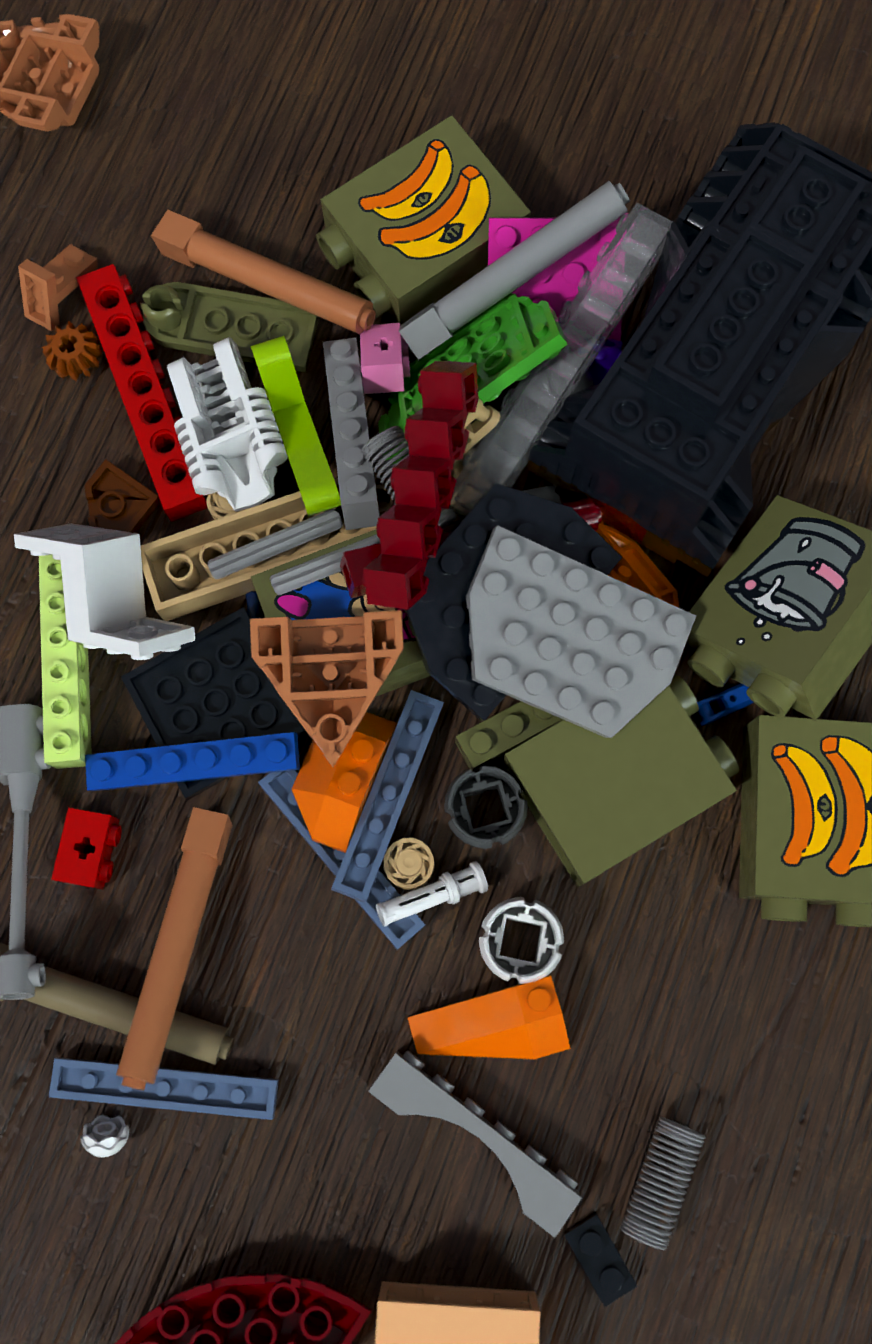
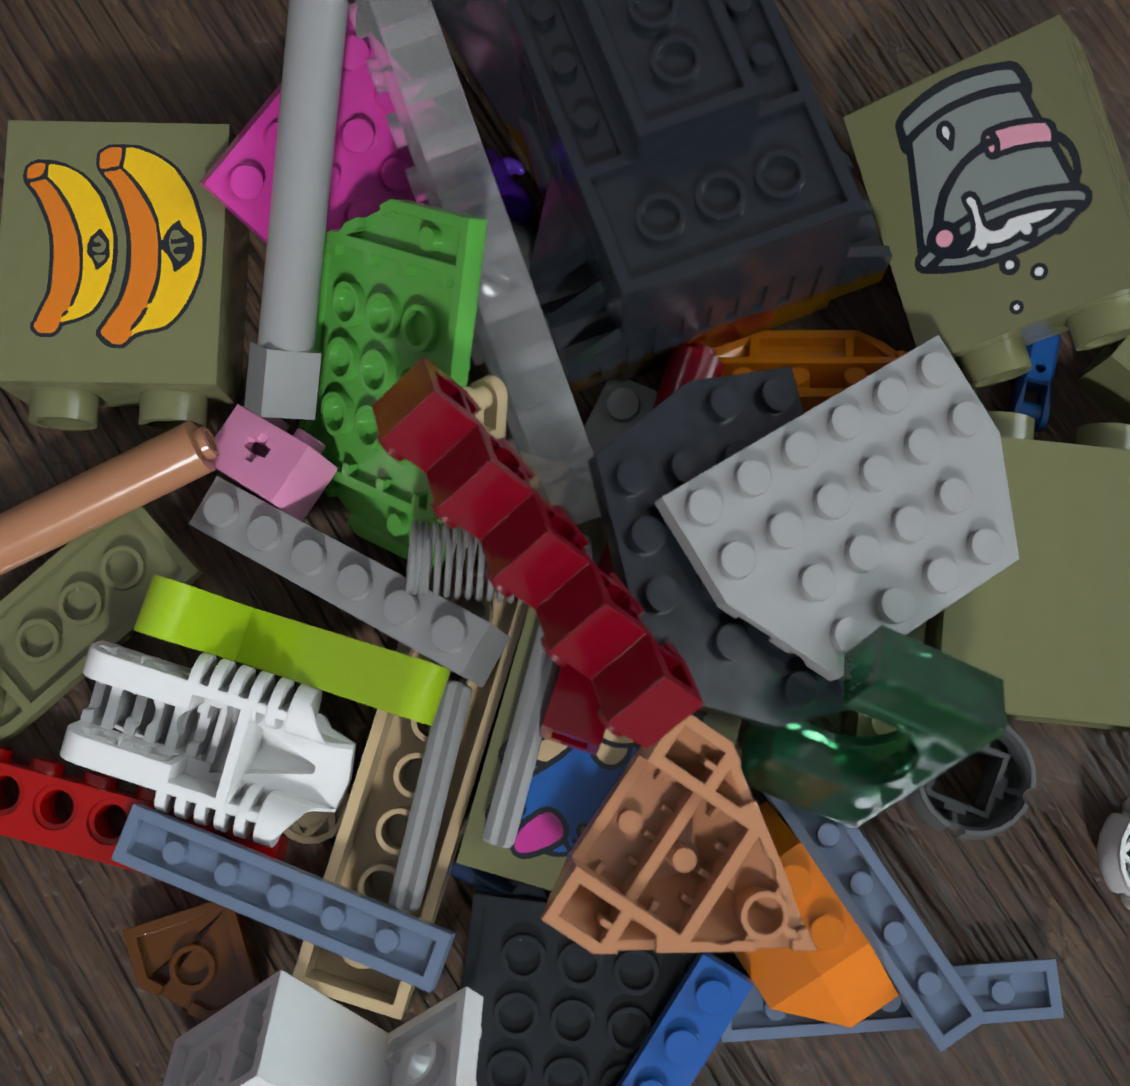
camera: 55 degrees left, 5 degrees up
(175, 512) = (284, 897): none -> sand blue plate
(409, 863) = (963, 921): tan wheel -> none
(448, 888) = (1017, 994): white pin -> none
(496, 717) = (932, 700): none -> clear green arch

